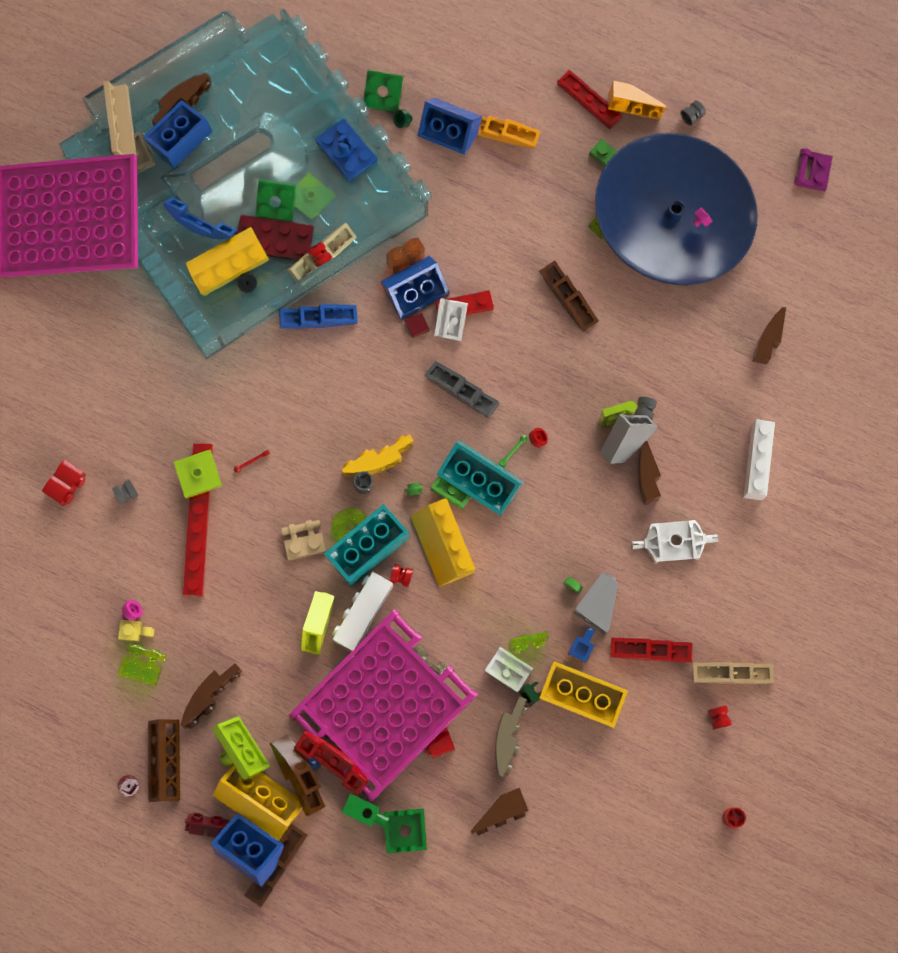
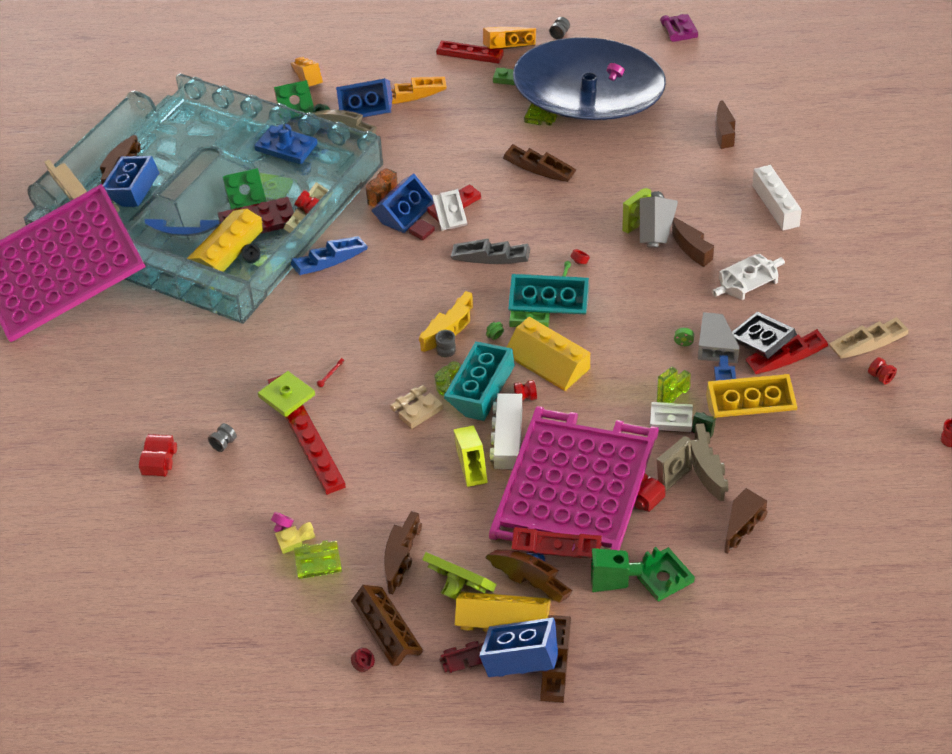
camera: 20 degrees left, 30 degrees down
(413, 142) = (347, 117): none -> dark tan slope
(417, 49) = (307, 70): none -> light orange slope
(475, 730) = (674, 463): none -> dark tan plate
(638, 626) = (763, 334): none -> plate

